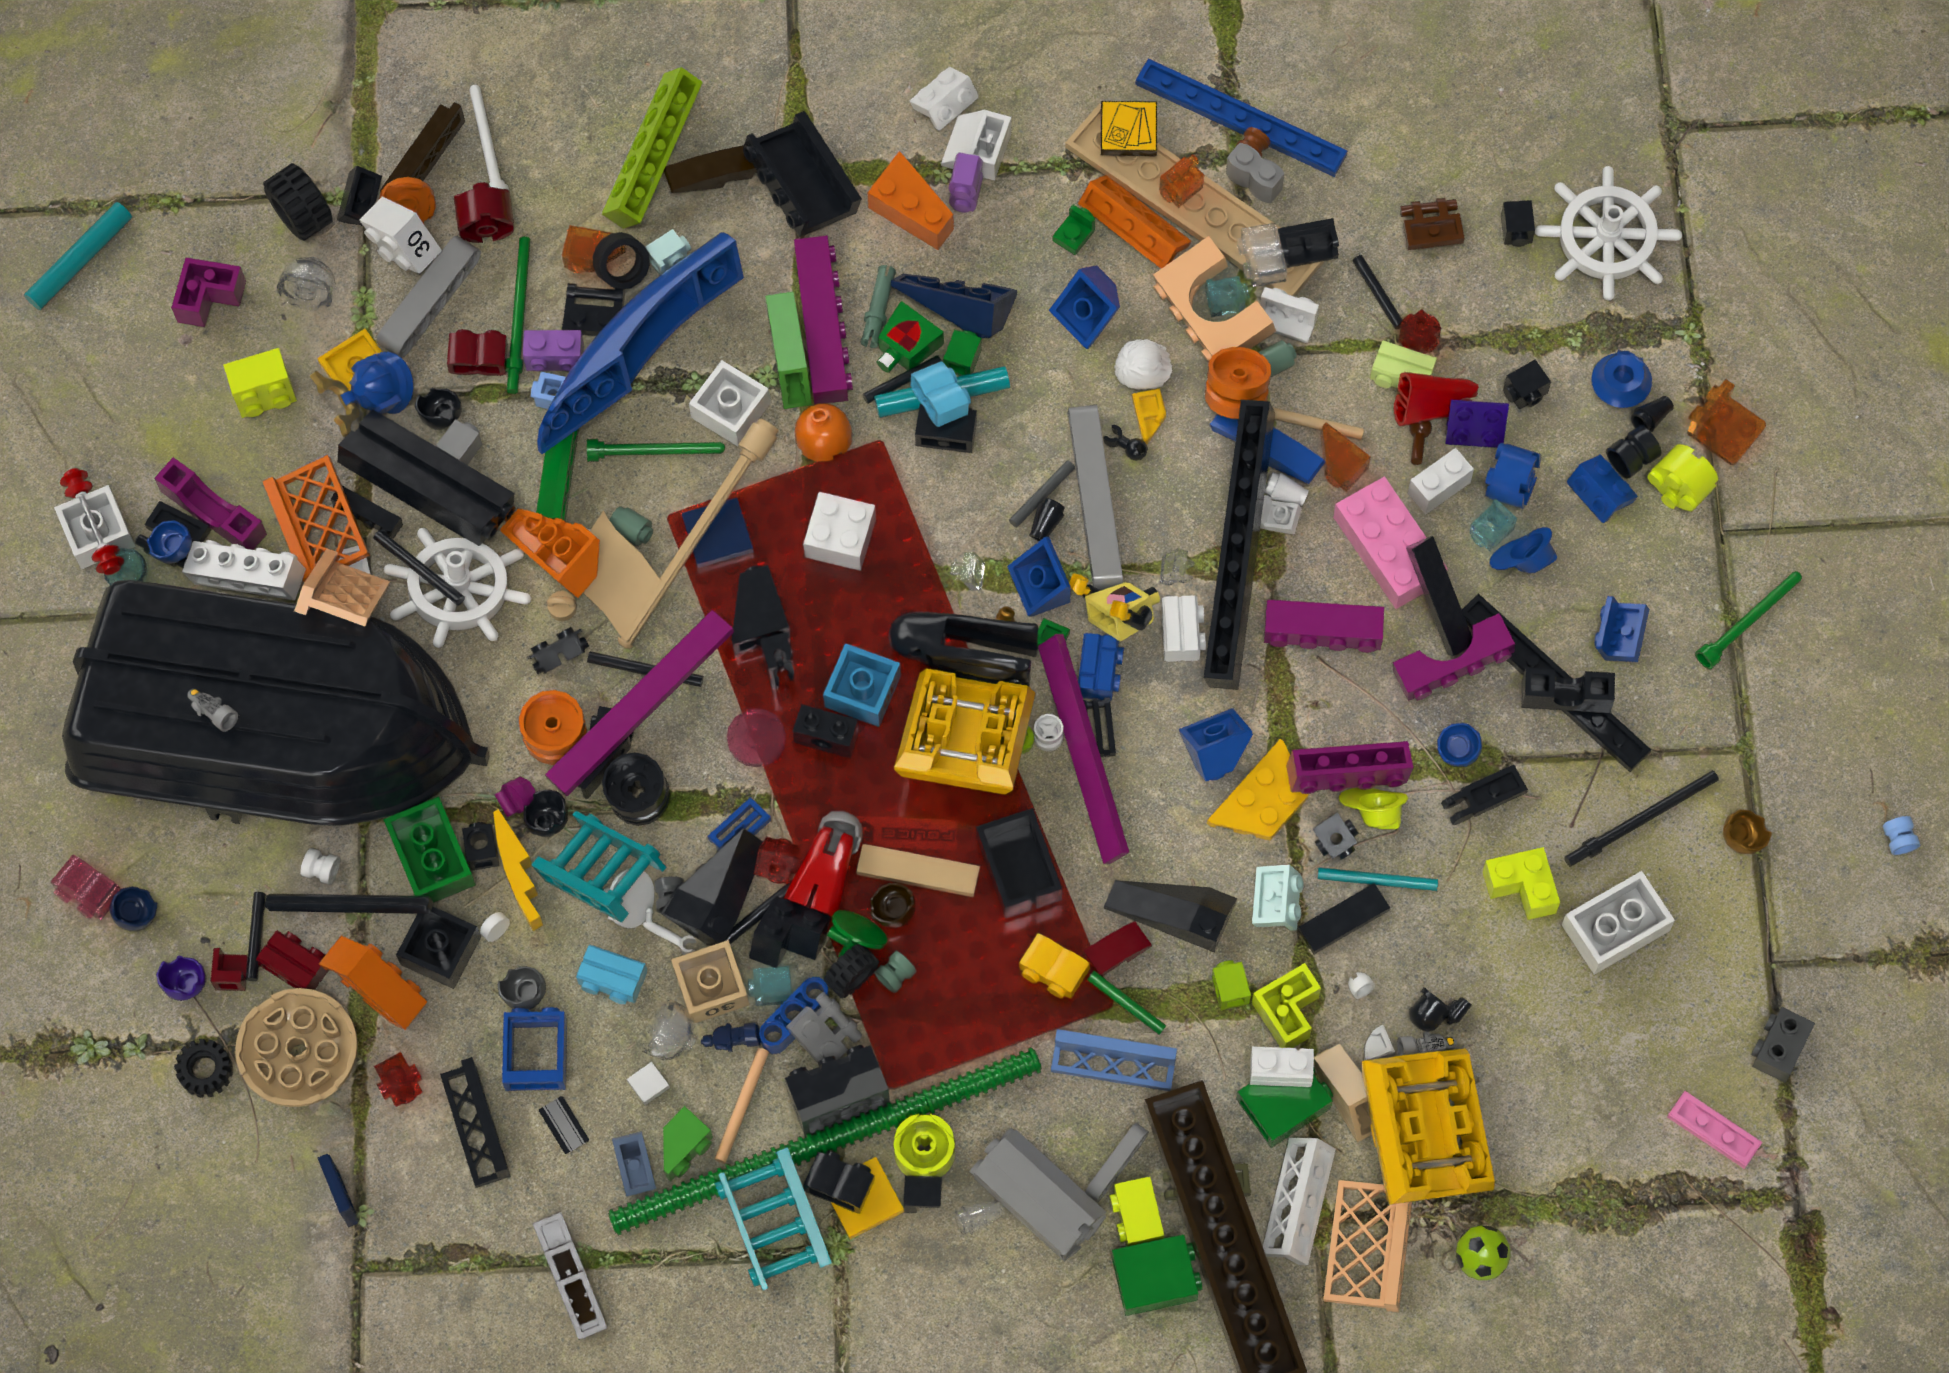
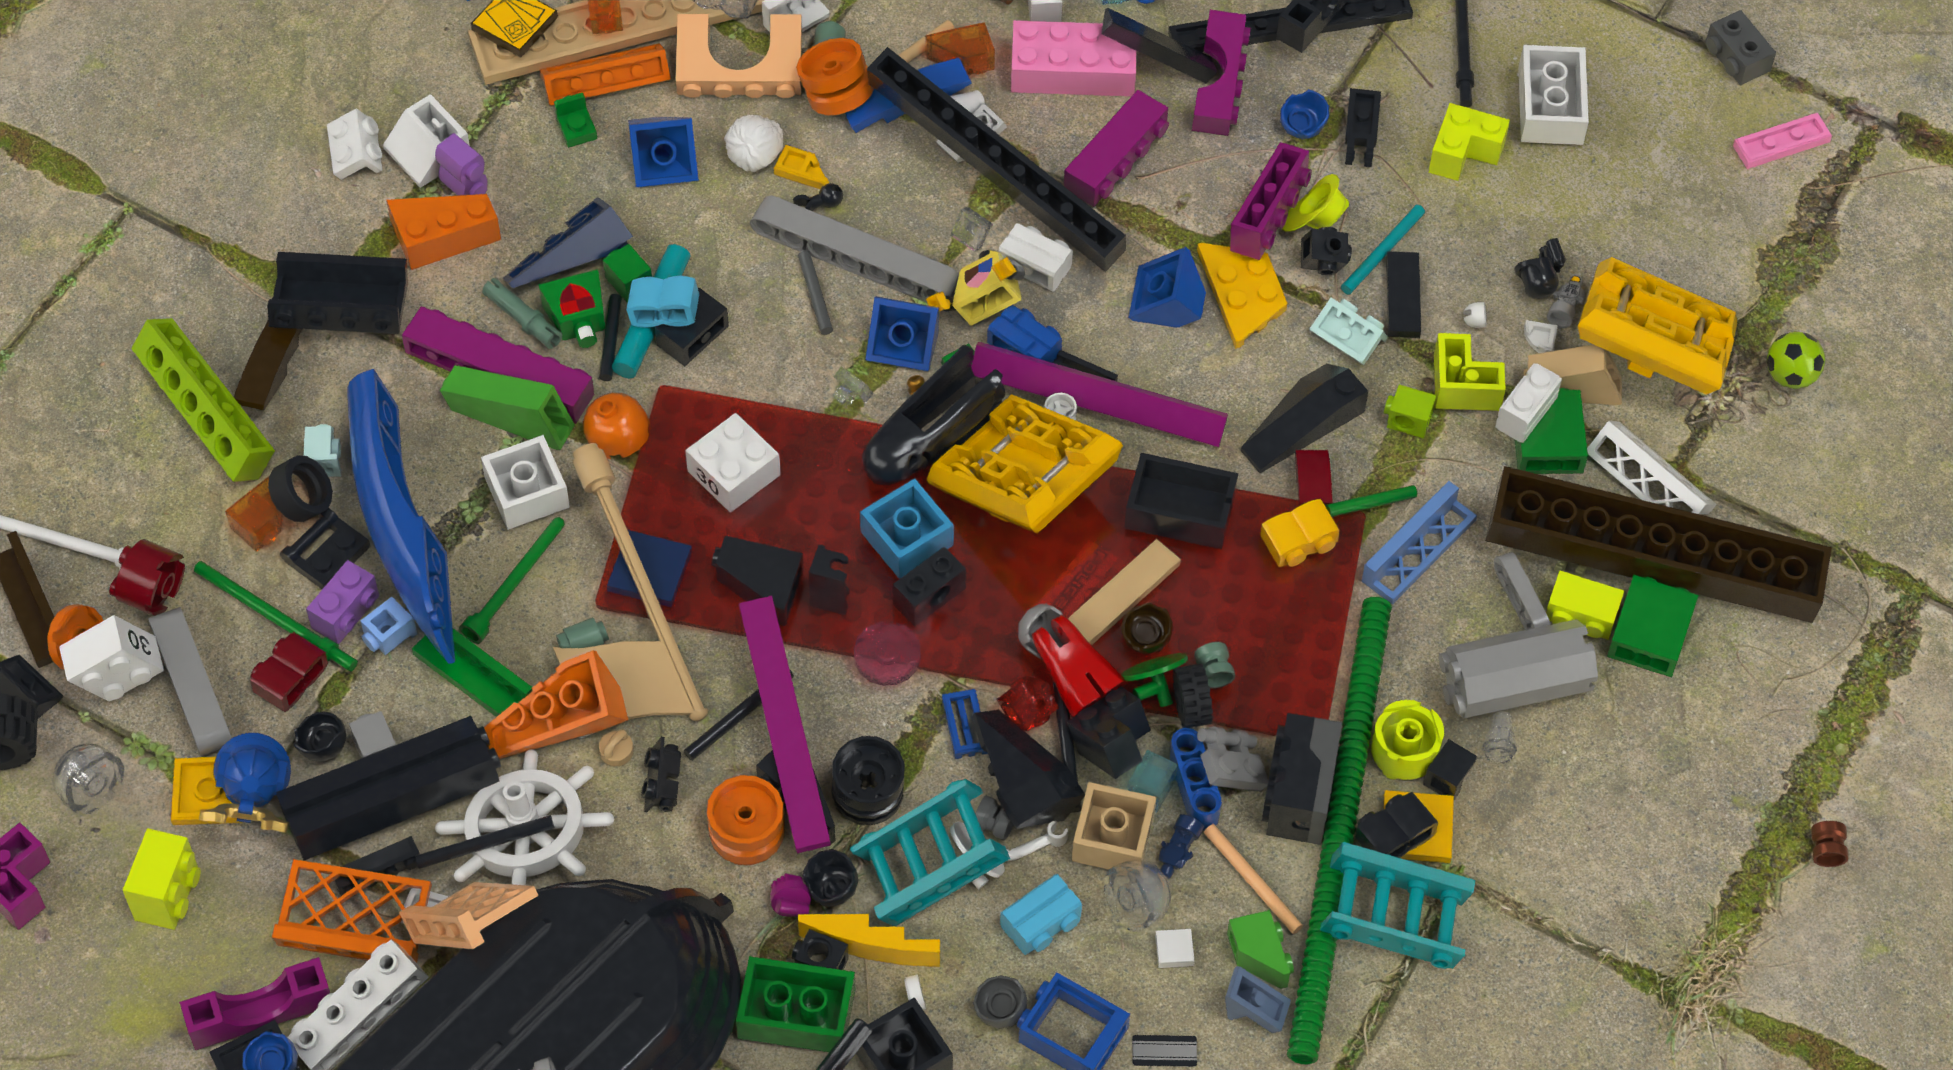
camera: 60 degrees left, 10 degrees down
(1046, 519) = (844, 298): black cone -> none
(1222, 303) = (739, 40): clear light blue brick -> none
(1394, 1255) = (1750, 429): light nougat fence -> none

